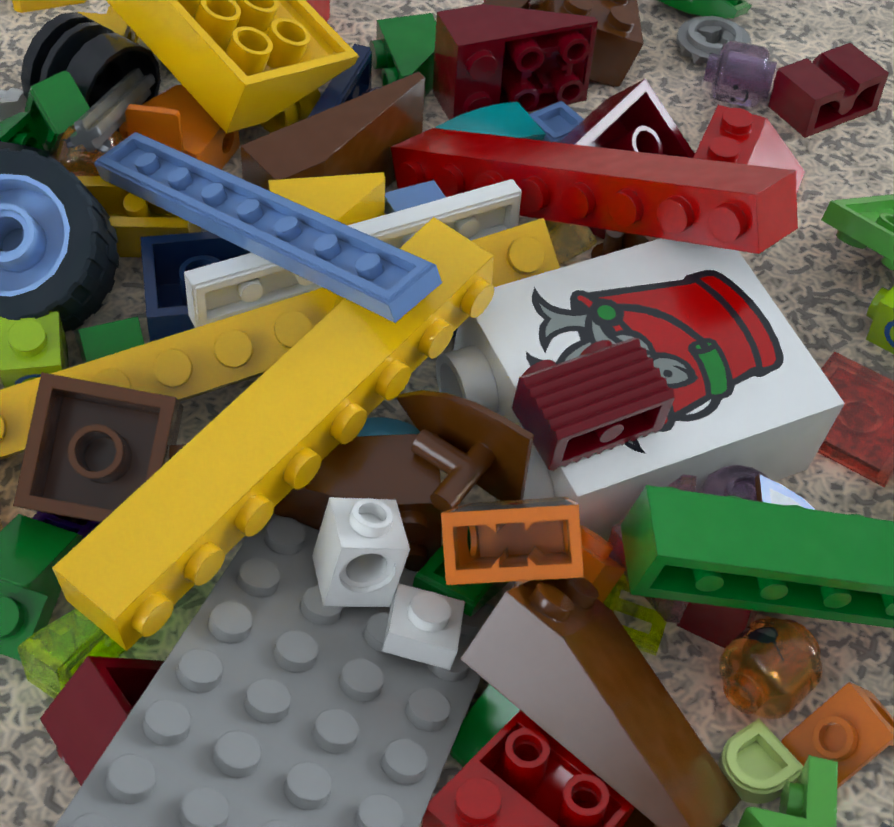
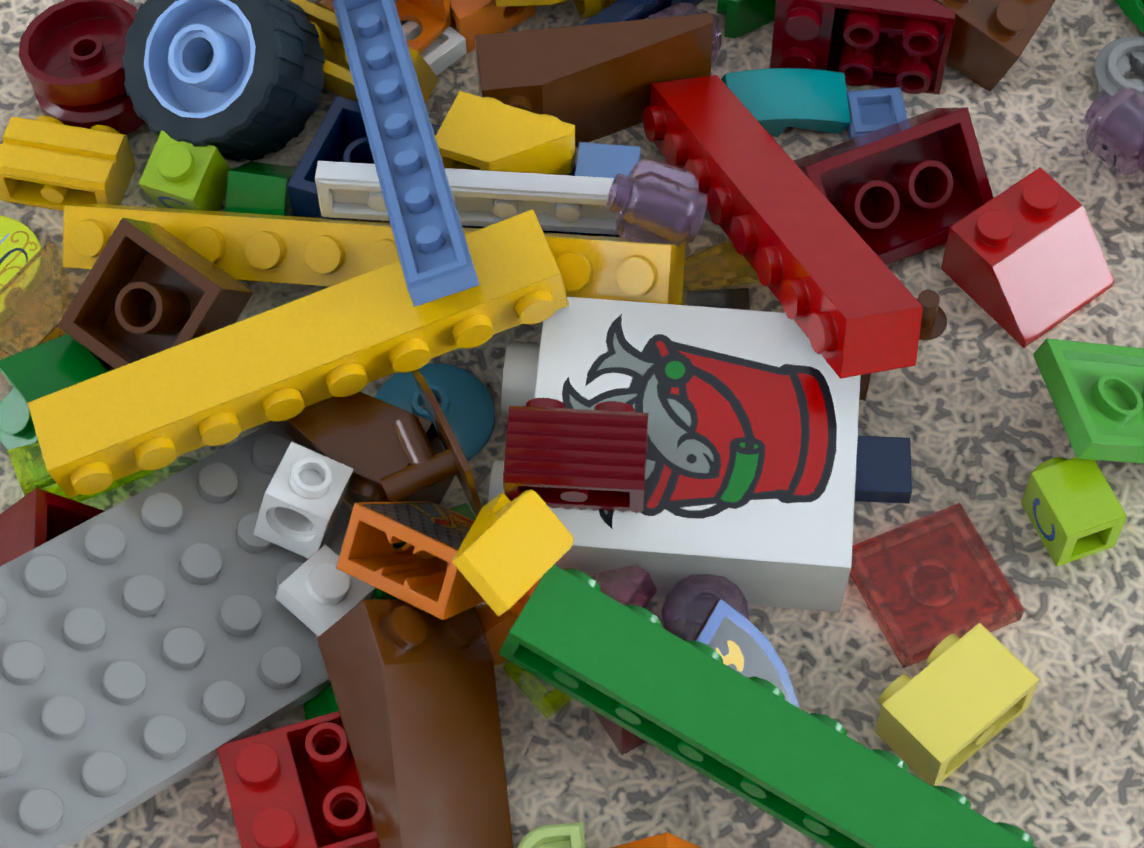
camera: 35 degrees right, 10 degrees up
(504, 195) = (657, 204): none -> clear purple head
(611, 481) = (511, 548): none -> yellow slope
(772, 665) = (619, 783): clear orange head -> none

